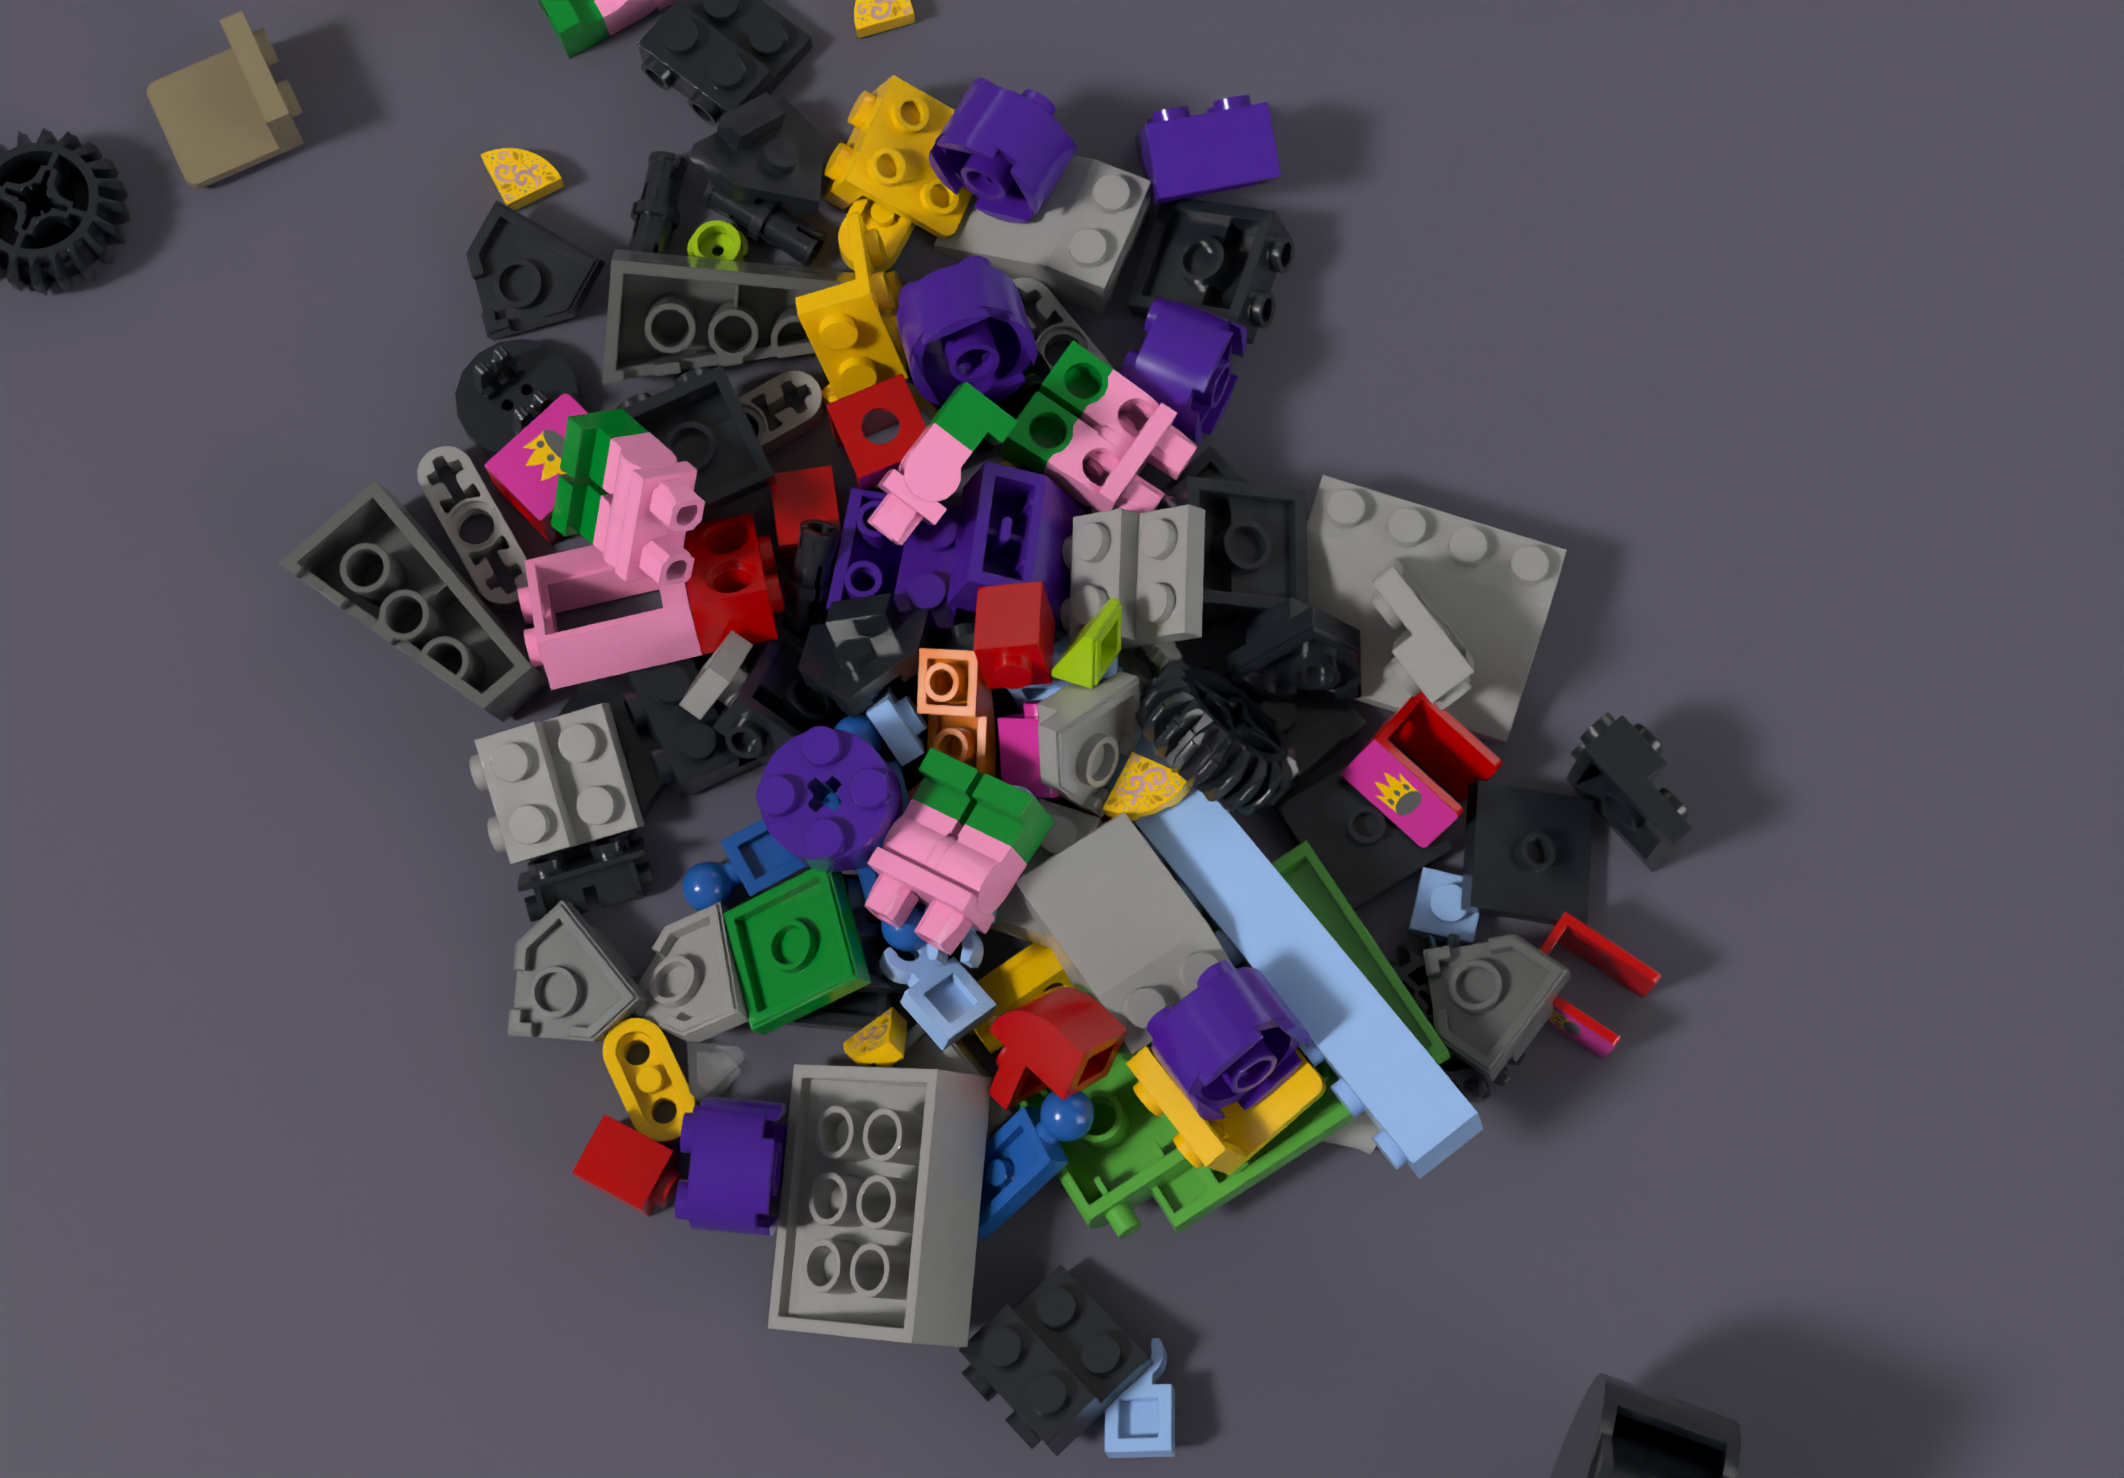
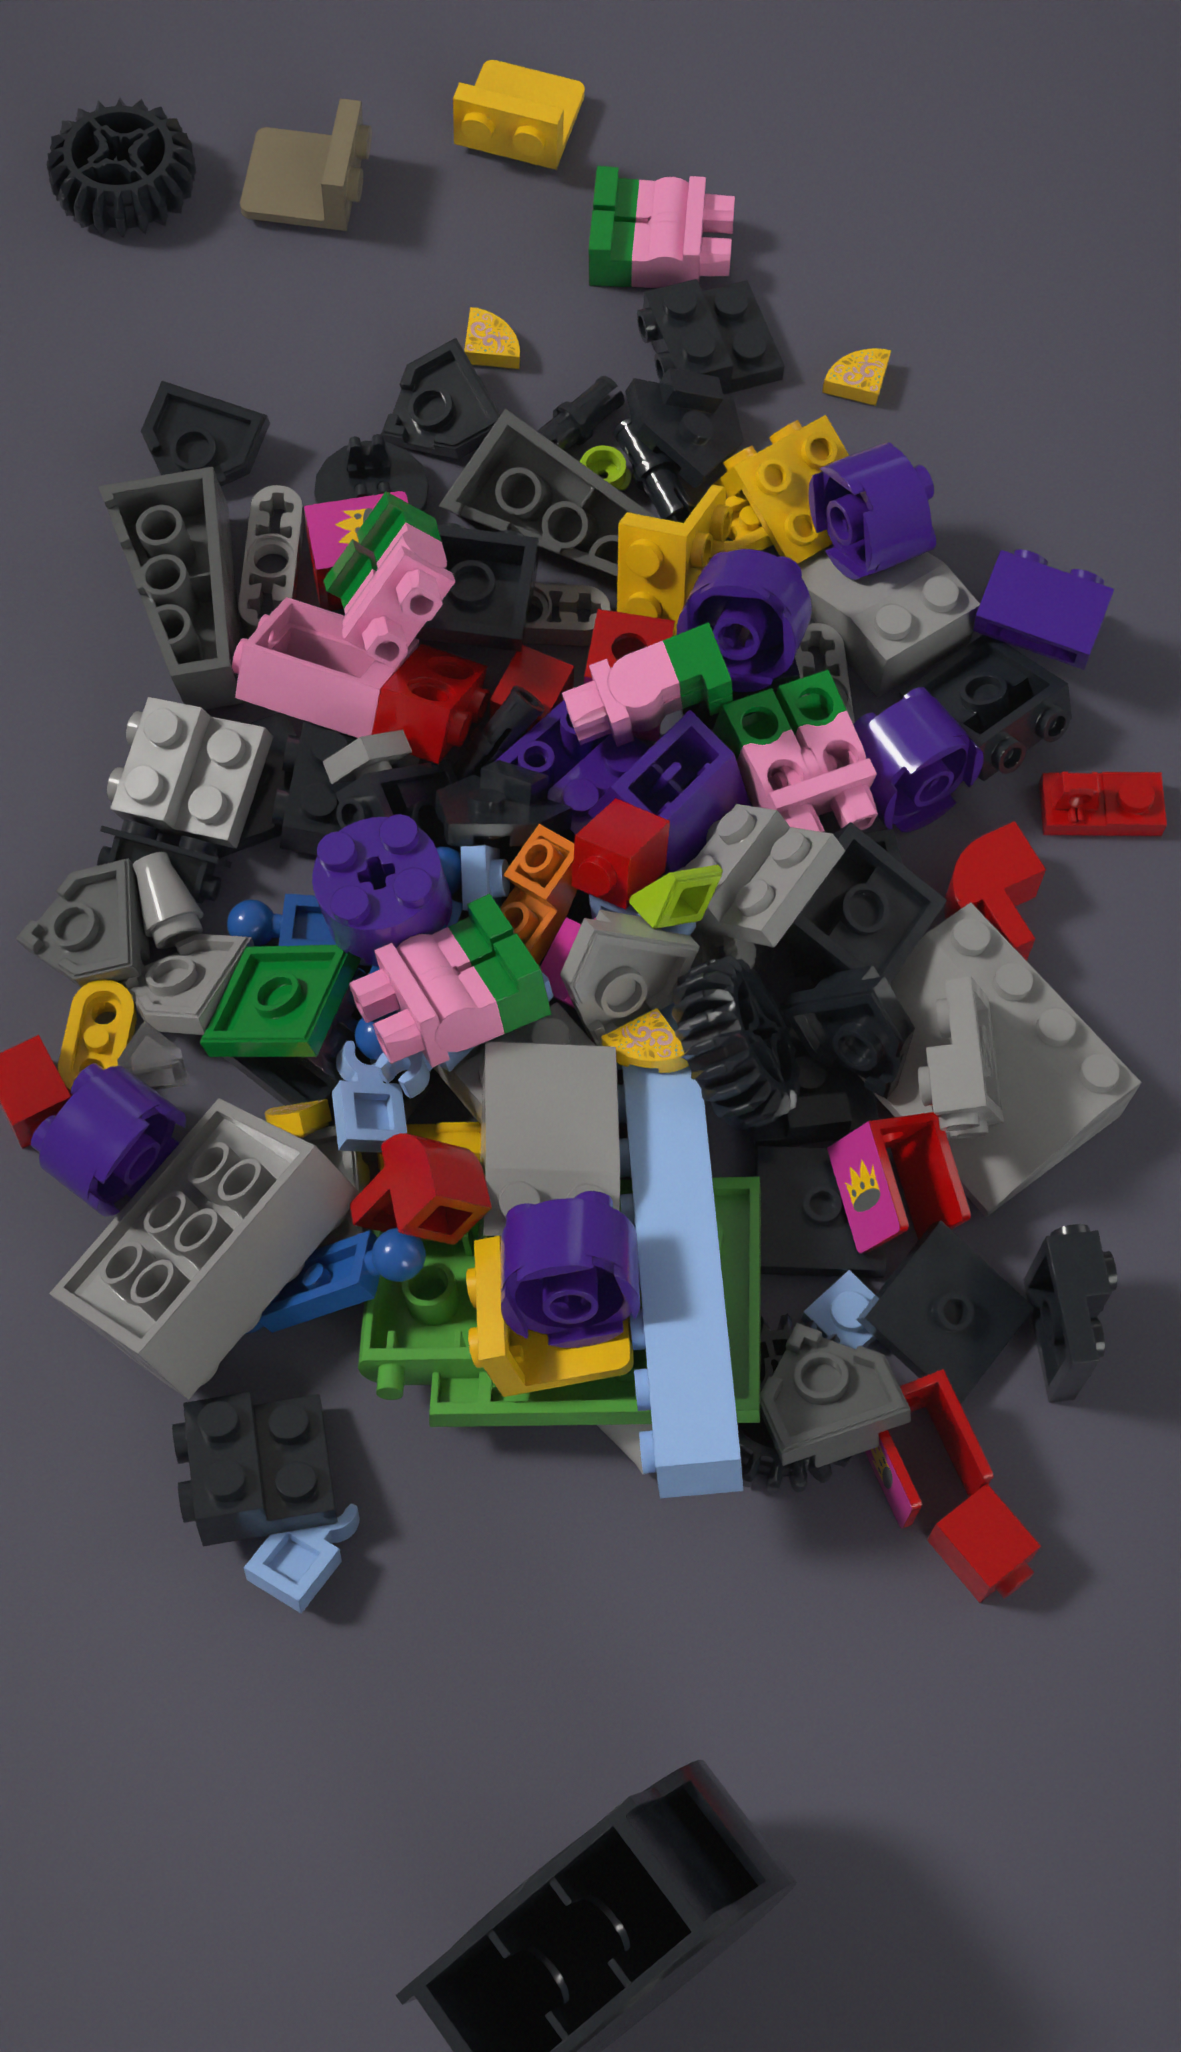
camera: 30 degrees right, 10 degrees down
(325, 448) = (201, 432): none -> black plate
(620, 917) = (165, 901): none -> light grey cone
(1316, 440) = (996, 877): none -> red brick
(1363, 297) = (1103, 804): none -> red hinge
(1683, 1032) = (985, 1545): none -> red brick

